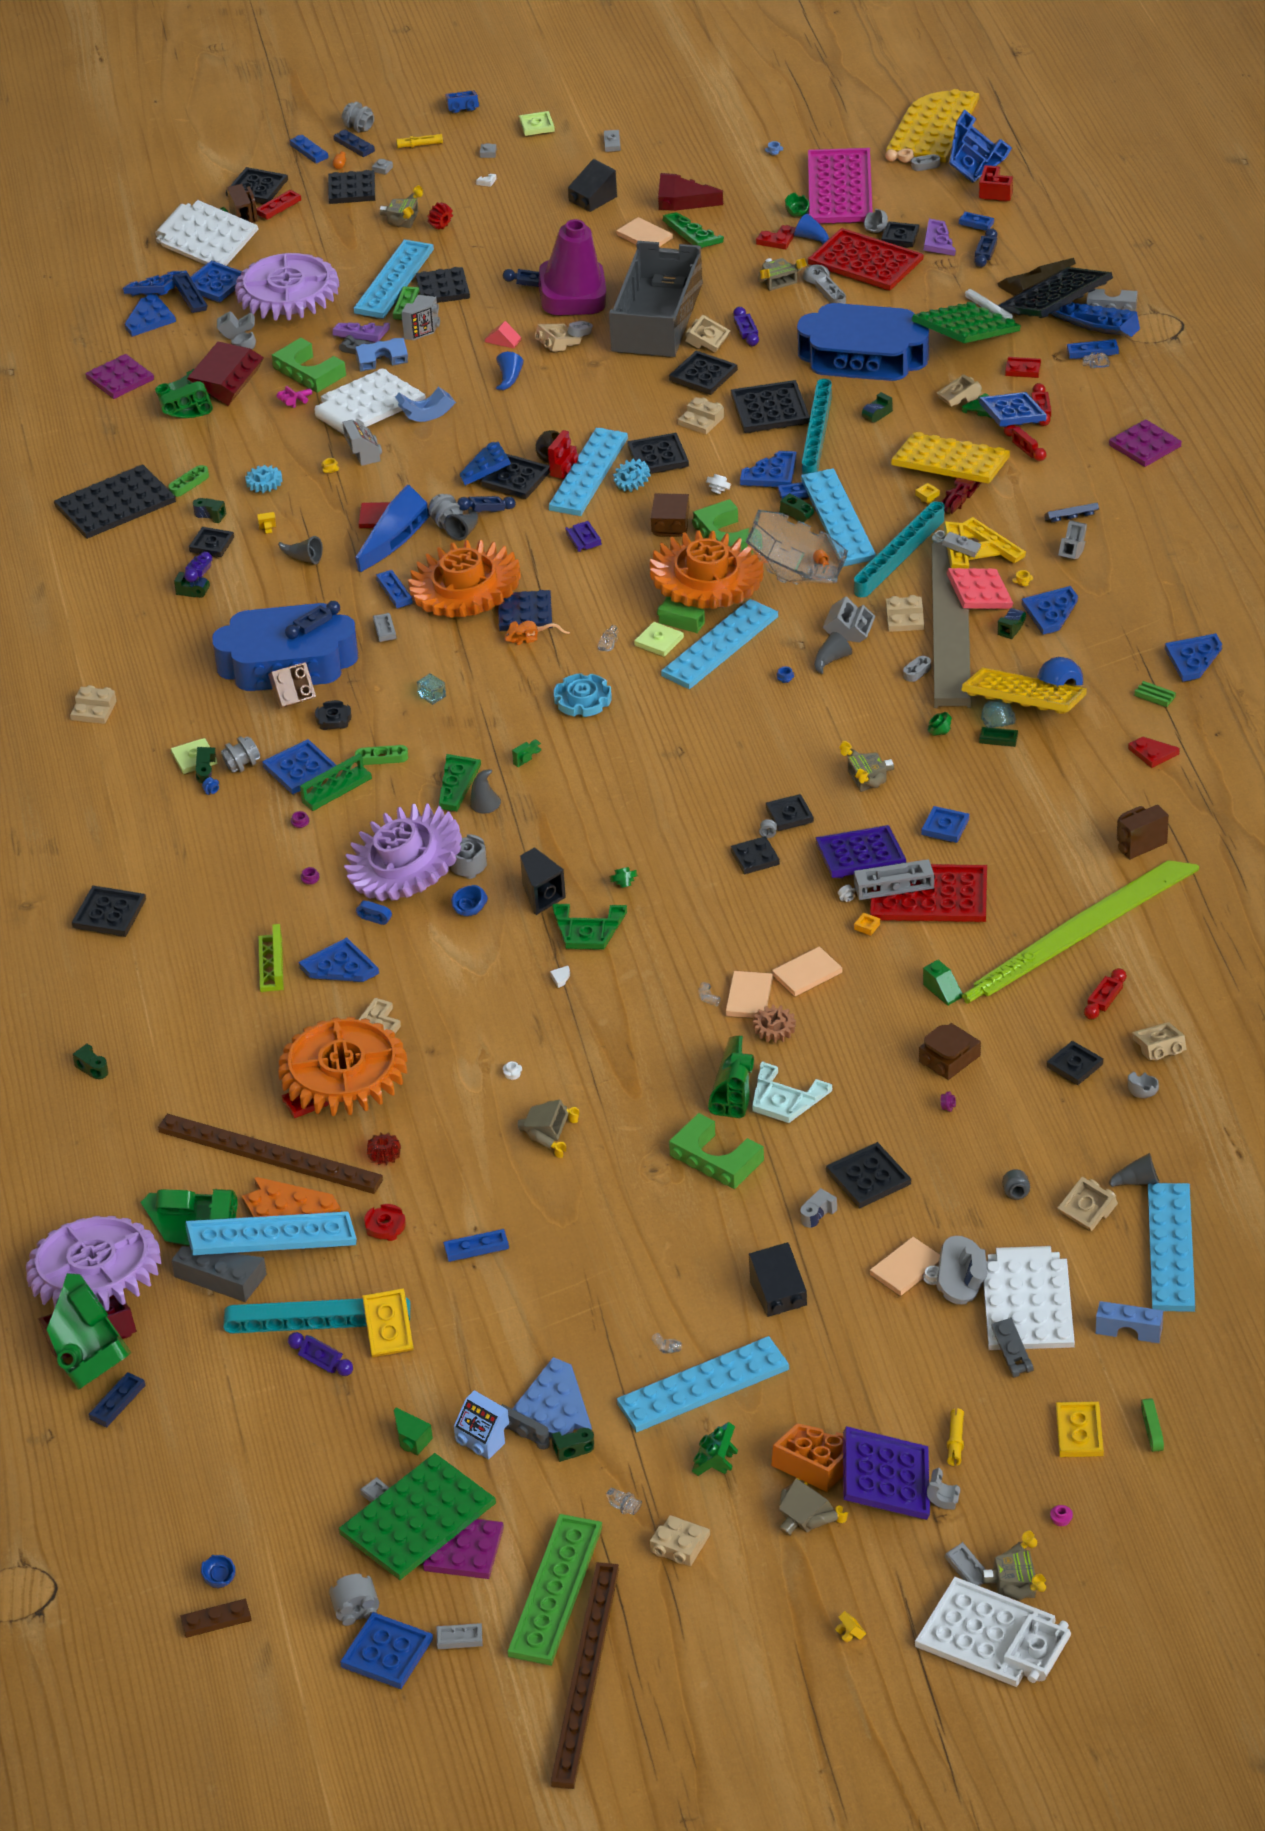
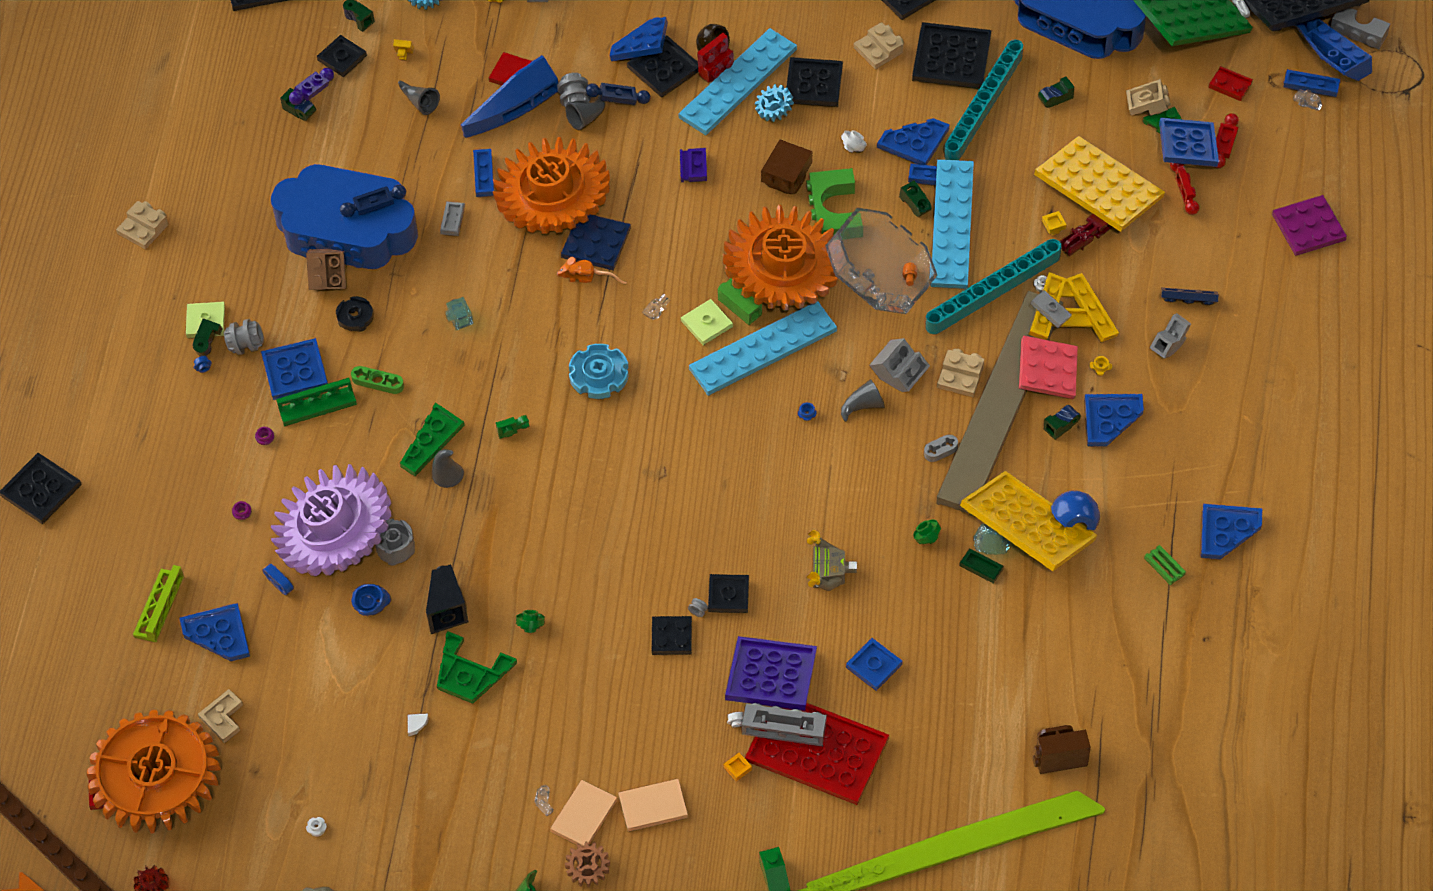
camera: 20 degrees right, 15 degrees up
(1152, 751) = (1127, 640): red wing -> none

